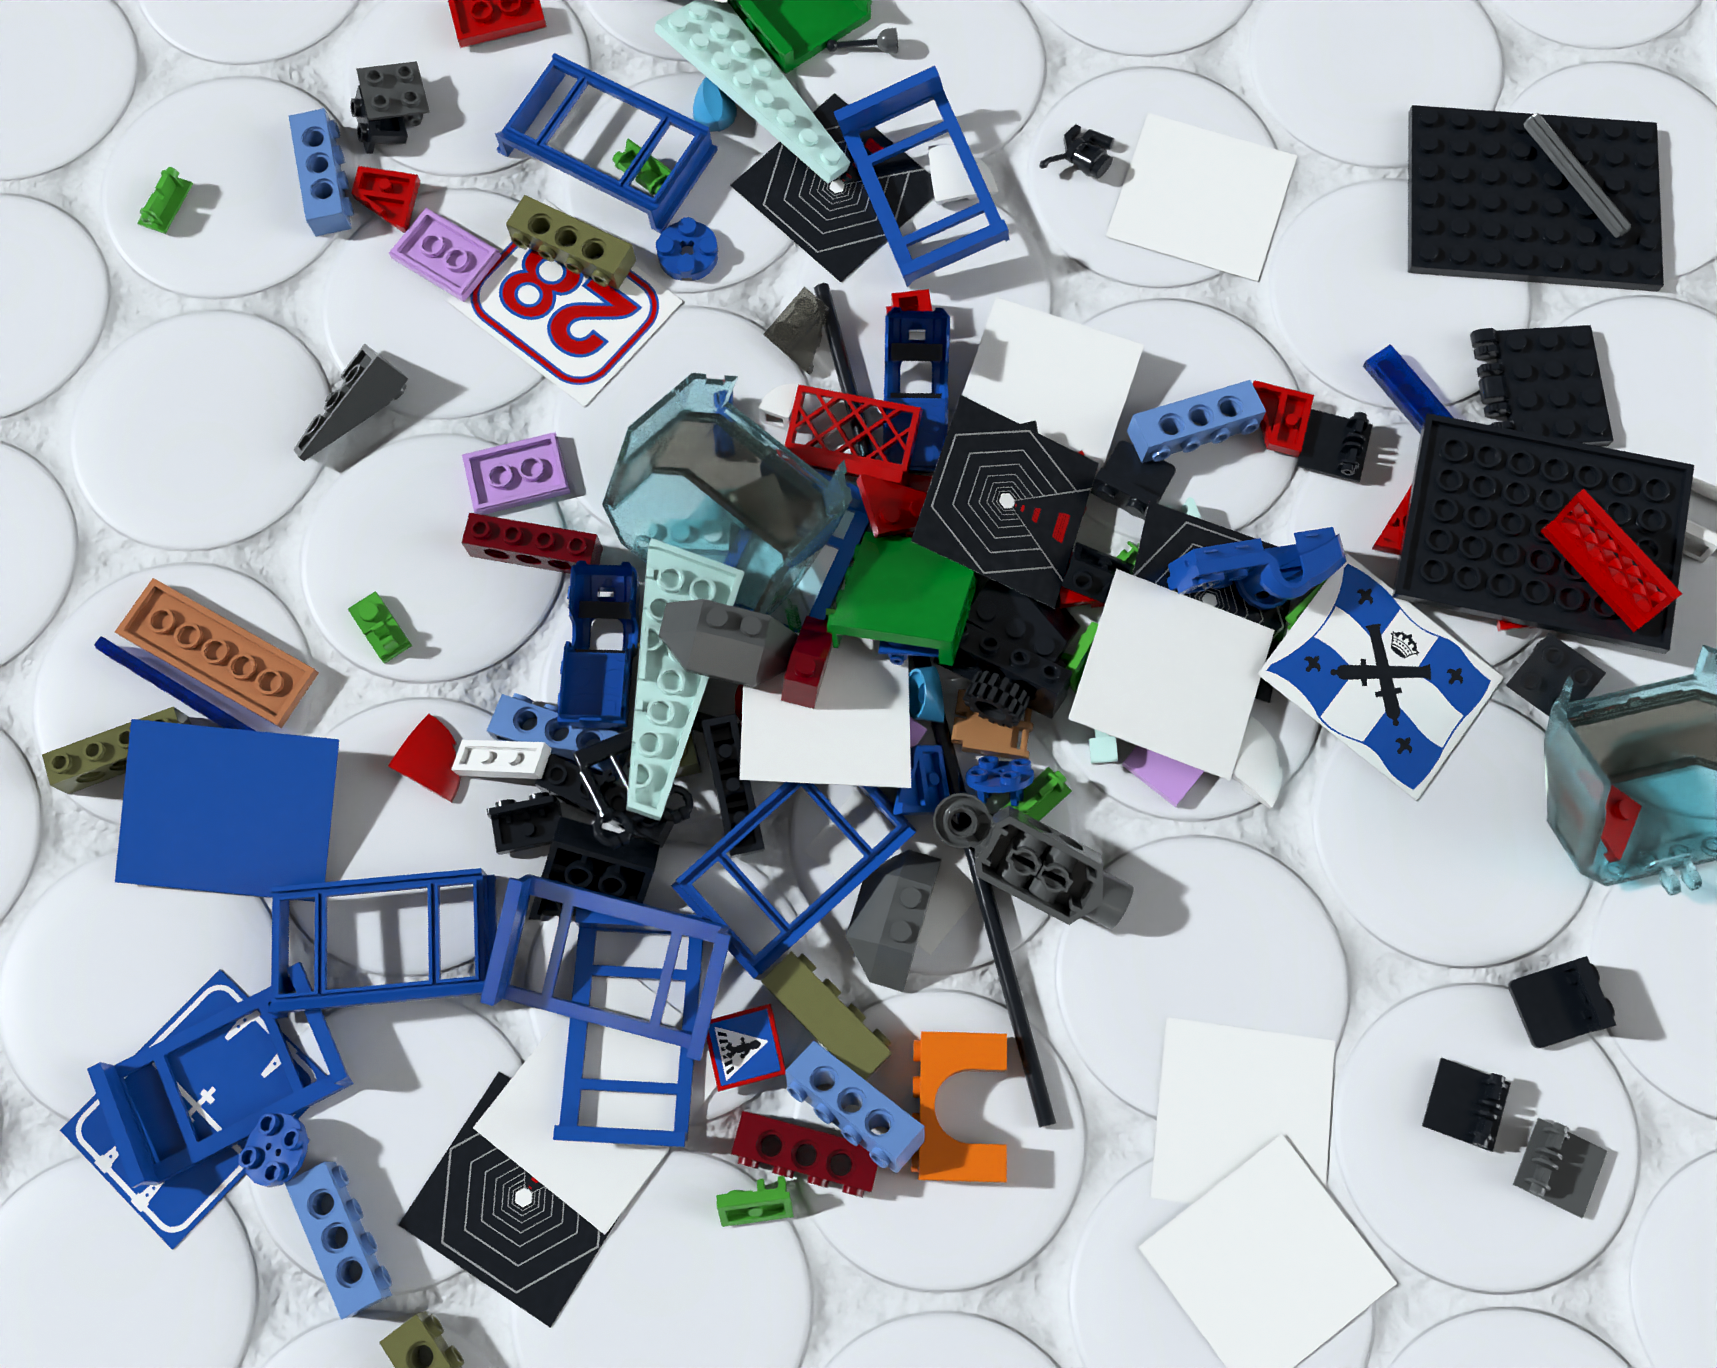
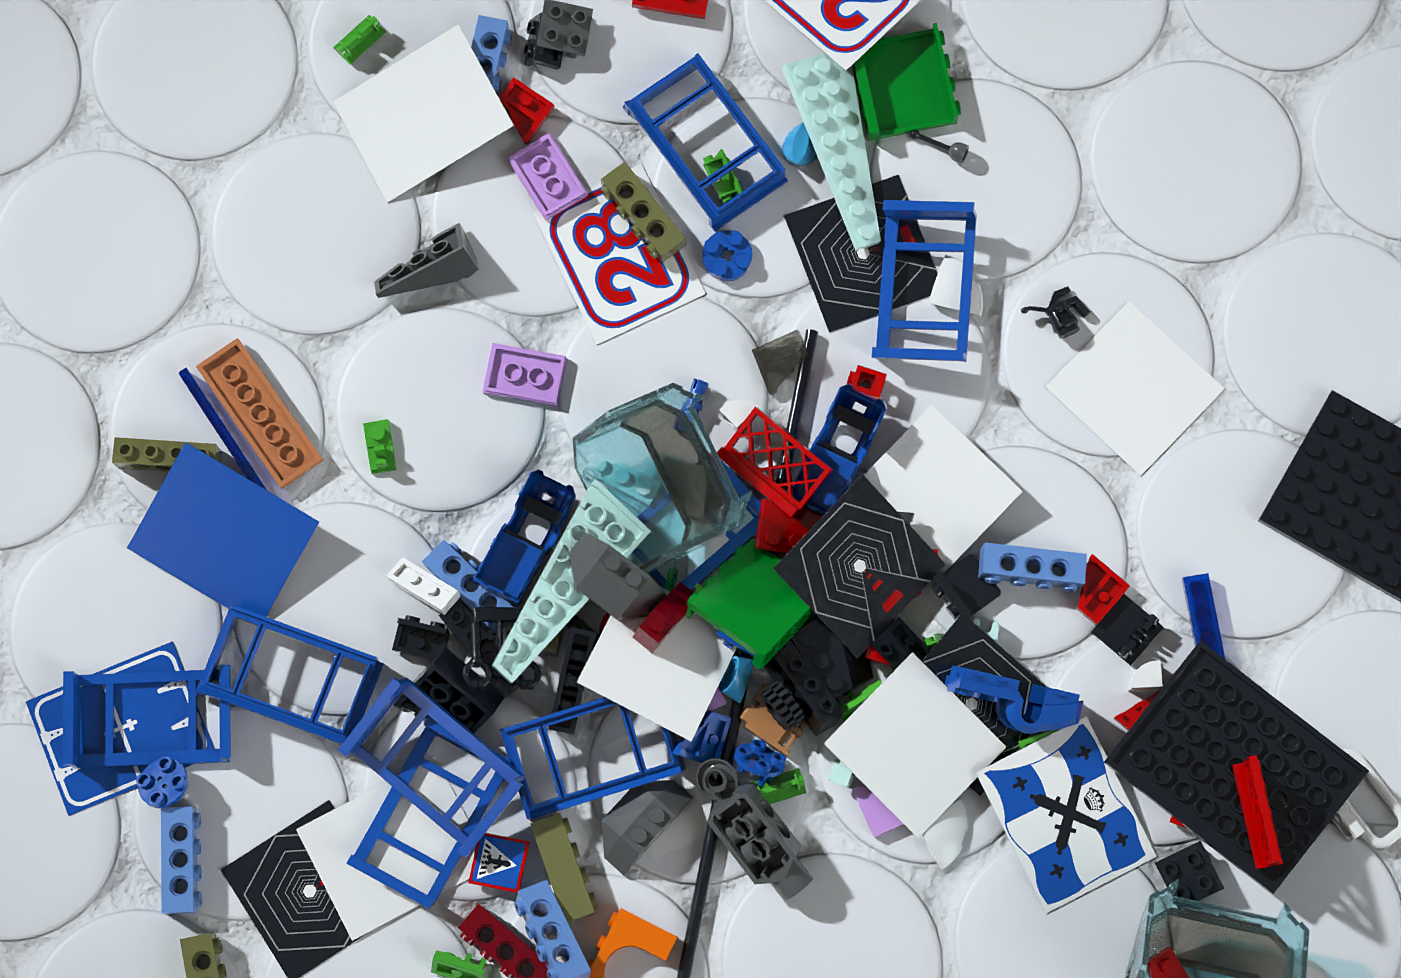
camera: 25 degrees right, 5 degrees up
(270, 244) = (423, 113): none -> white sticker
(428, 758) = (374, 559): red brick -> none
(529, 543) = (512, 436): dark red brick -> none
(1386, 484) = (1147, 677): none -> white brick
(1544, 382) = (1309, 658): black hinge -> none

